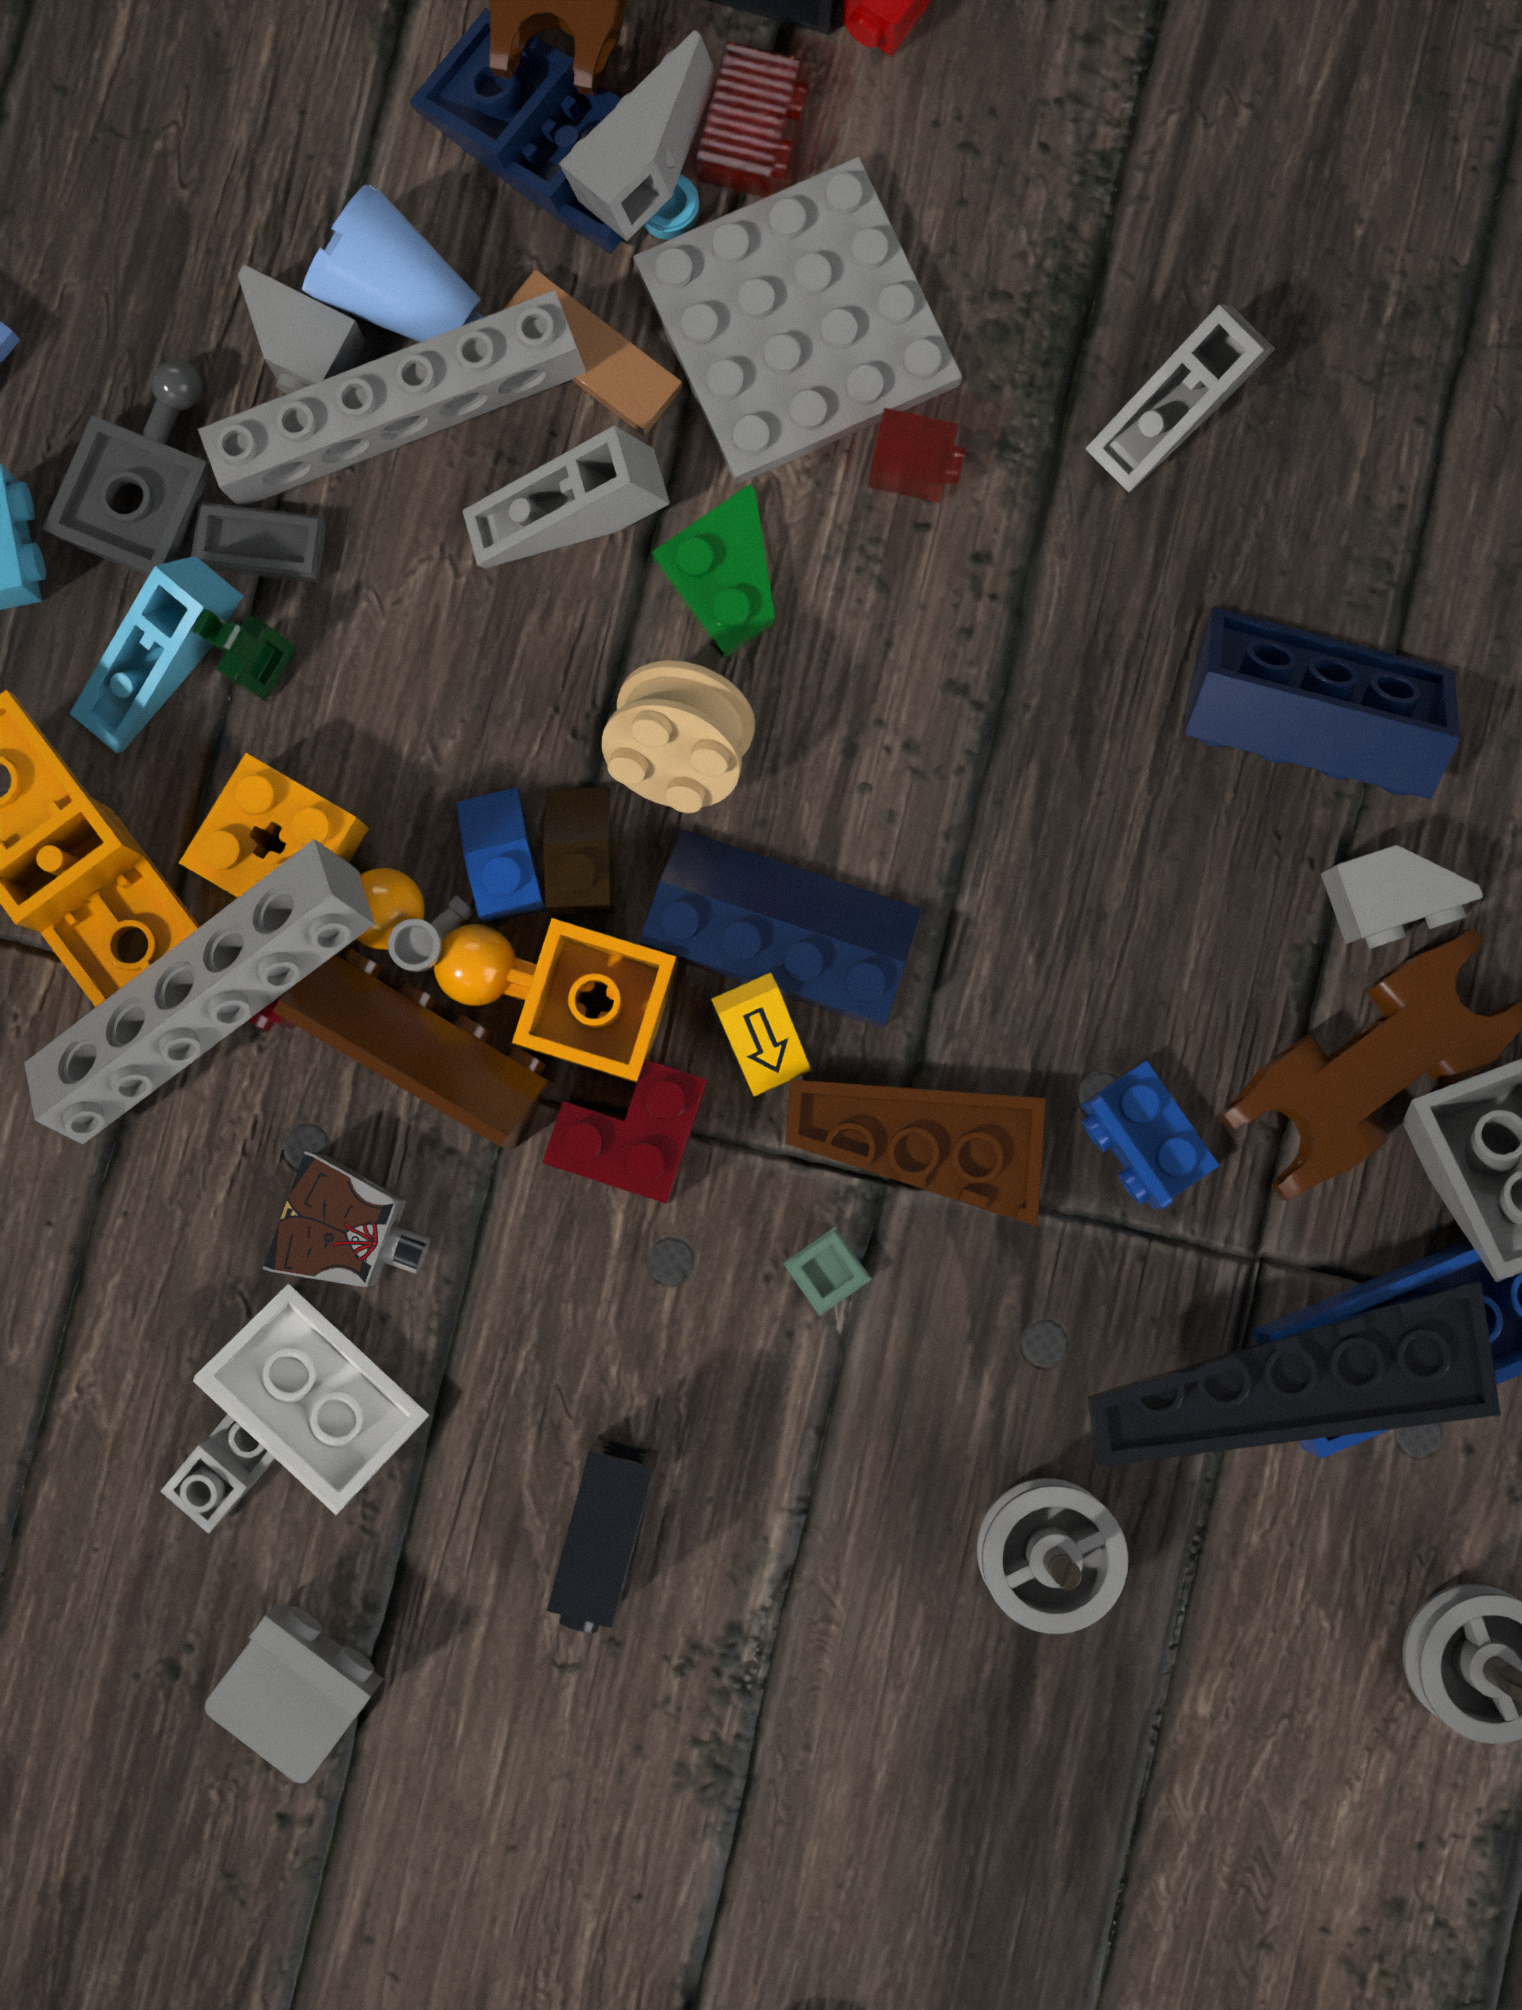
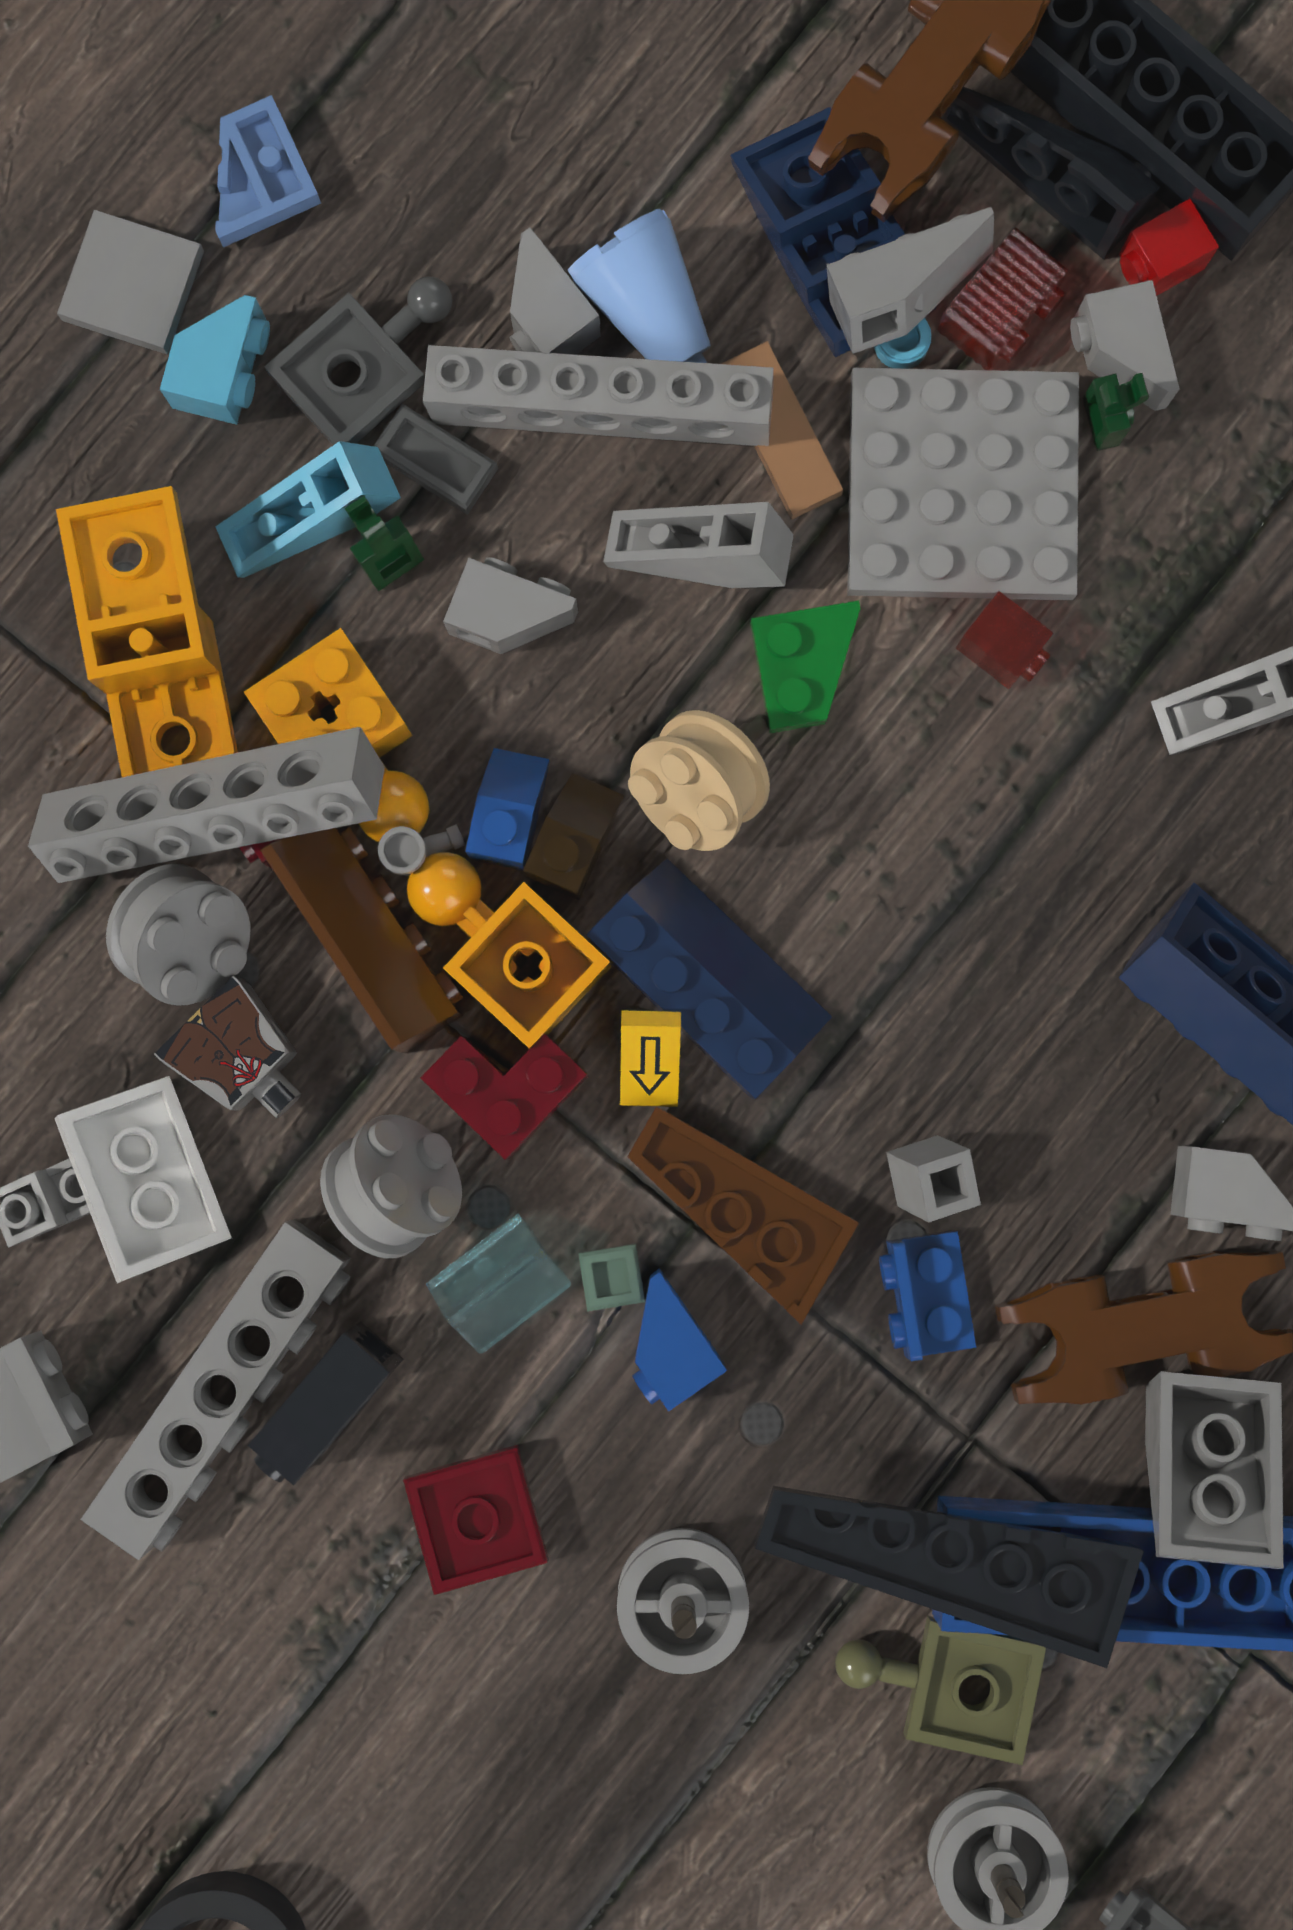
camera: 30 degrees right, 0 degrees up
(229, 1136) = (177, 933): none -> light grey wheel
(401, 659) = (505, 610): none -> light grey slope
(448, 1736) = (122, 1506): none -> light grey brick
(564, 1287) = (389, 1187): none -> light grey wheel
(718, 1333) = (497, 1285): none -> clear light blue panel
(808, 1576) = (475, 1519): none -> dark red plate
(893, 105) = (1126, 336): none -> light grey slope
(907, 175) = (1111, 408): none -> dark green plate
(921, 1311) = (672, 1348): none -> blue slope
(1098, 1018) = (933, 1178): none -> light grey brick
(1351, 1543) = (935, 1712): none -> olive plate

